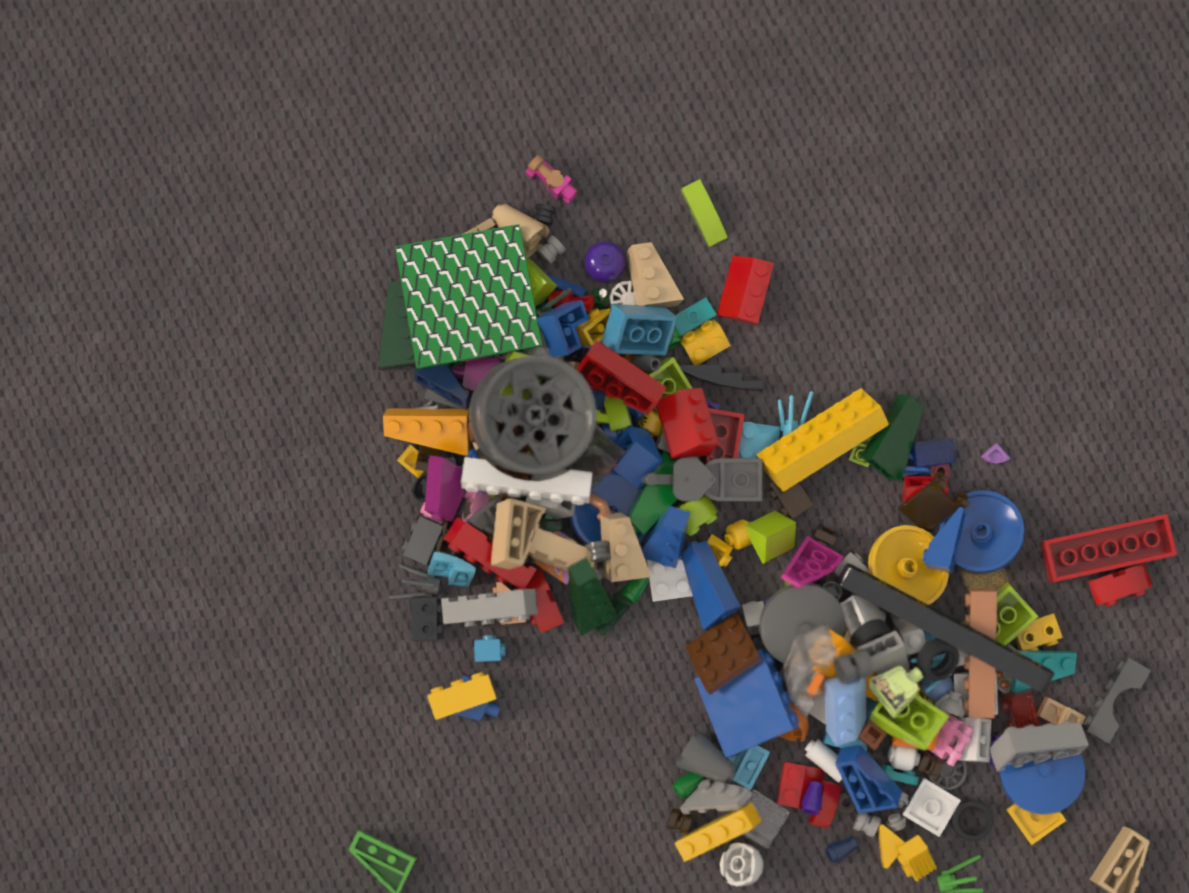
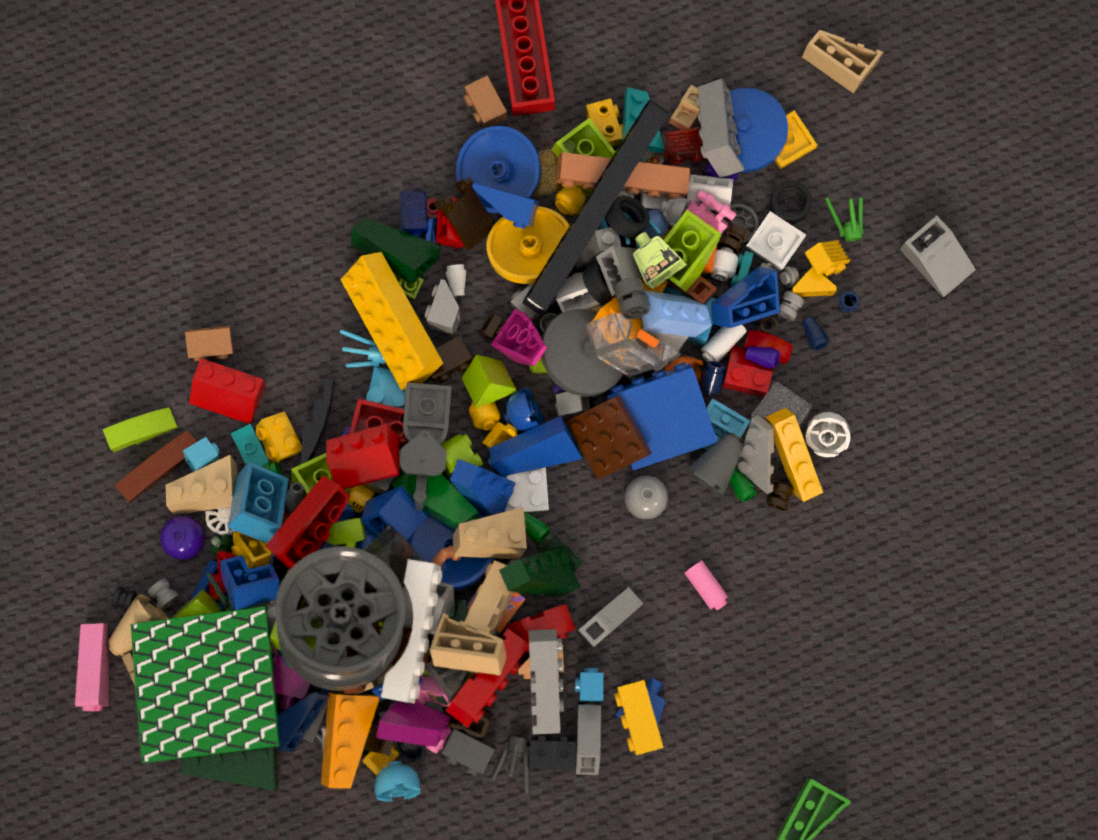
camera: 85 degrees left, 5 degrees down
(392, 477) = (397, 781): none -> medium azure cylinder
(441, 651) = (588, 739): none -> light grey slope
(457, 570) = (502, 716): medium azure slope -> none
(479, 192) = (93, 668): none -> bright pink slope
(552, 178) = (86, 587): hips -> none
(554, 665) = (610, 617): none -> light grey slope
(589, 755) = (707, 586): none -> bright pink brick
(598, 551) = (493, 558): dark grey wheel -> none
(670, 233) = (155, 467): none -> copper slope
(670, 693) = (646, 497): none -> light grey cylinder
(682, 272) = (201, 454): none -> medium azure brick
(743, 571) = (523, 411): none -> blue cylinder
(789, 751) = (712, 378): none -> dark blue brick
(791, 269) = (209, 342): none -> medium nougat brick
(834, 489) = (444, 312): none -> light grey slope
(872, 498) = (456, 278): none -> white cone
(879, 880) = (851, 298): none -> dark blue cone
(955, 604) = (570, 200): none -> yellow head
(995, 455) = (420, 152): medium lavender tile -> none
(1050, 514) = (485, 102): none -> medium nougat brick
(1102, 722) = (697, 68): dark grey arch -> none
(1120, 584) = (561, 40): red brick -> none

